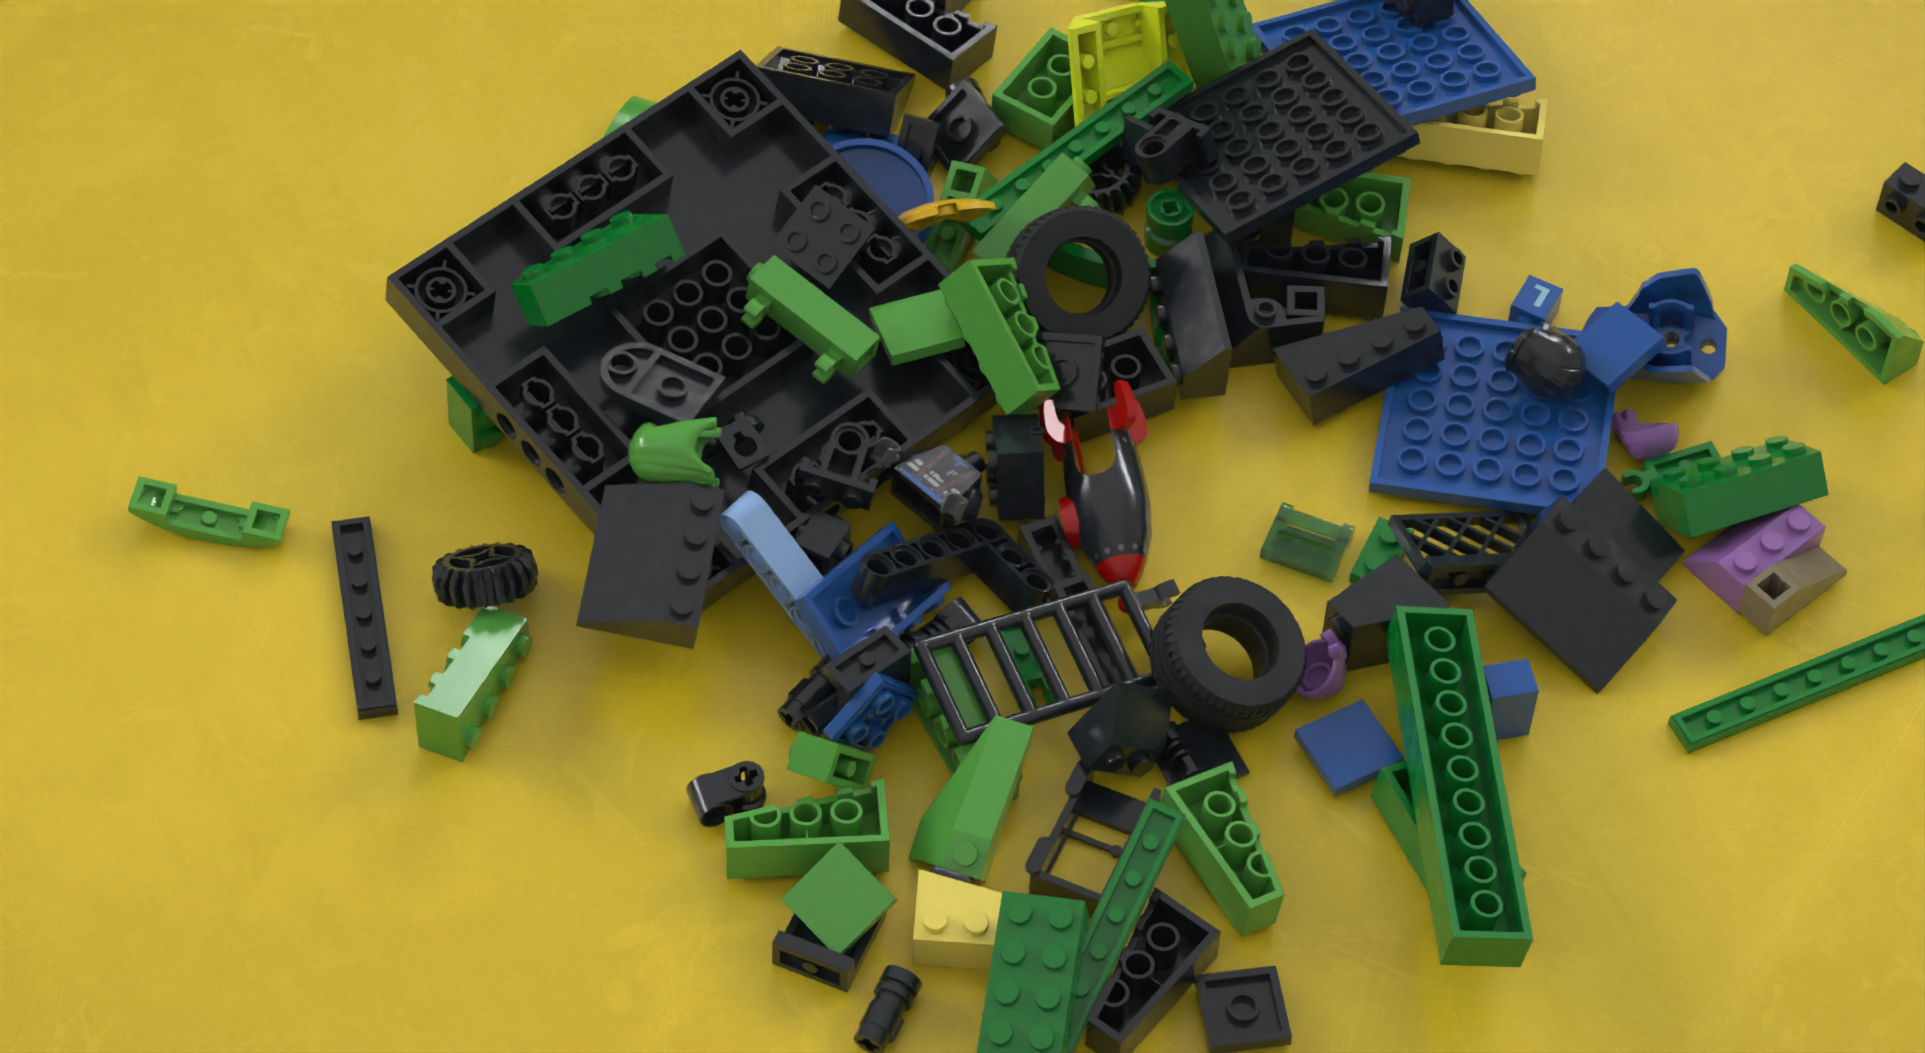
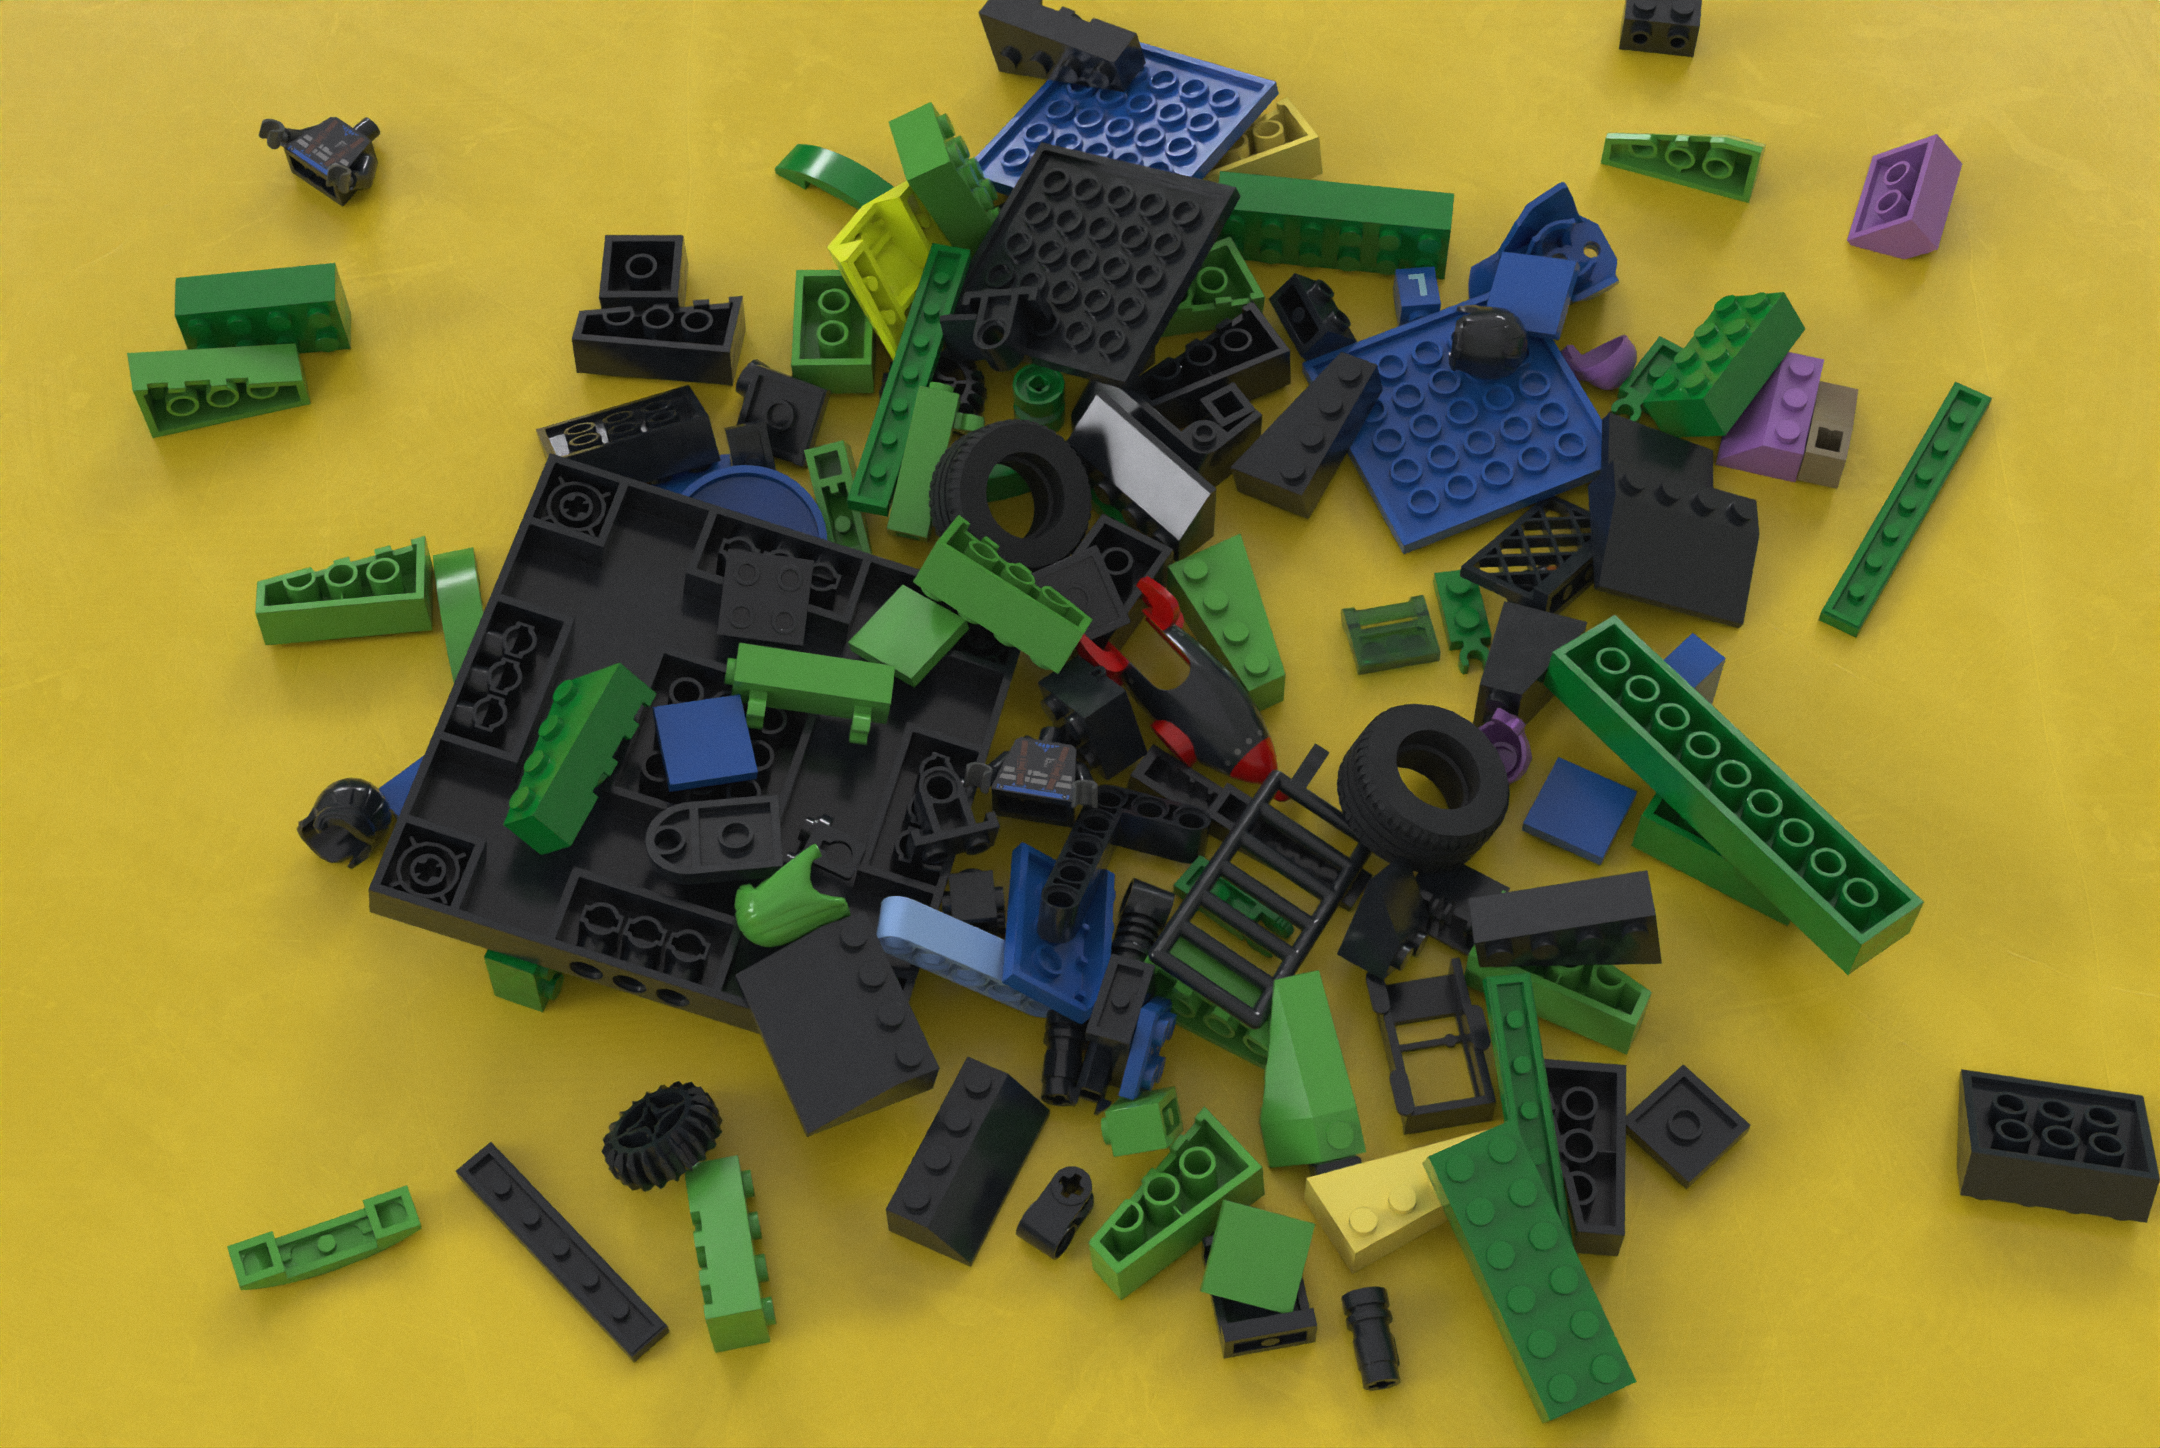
camera: 30 degrees left, 5 degrees up
(423, 232) = (346, 821): none -> black hair
(548, 91) = (350, 598): none -> bright green wedge
(689, 721) = (967, 1162): none -> black slope
(700, 313) = (704, 743): none -> blue tile
(953, 209) = (842, 503): yellow brick -> none
(1190, 453) = (1229, 618): none -> bright green wedge
(1254, 806) = (1568, 924): none -> black wedge
(1506, 215) = (1338, 224): none -> green brick

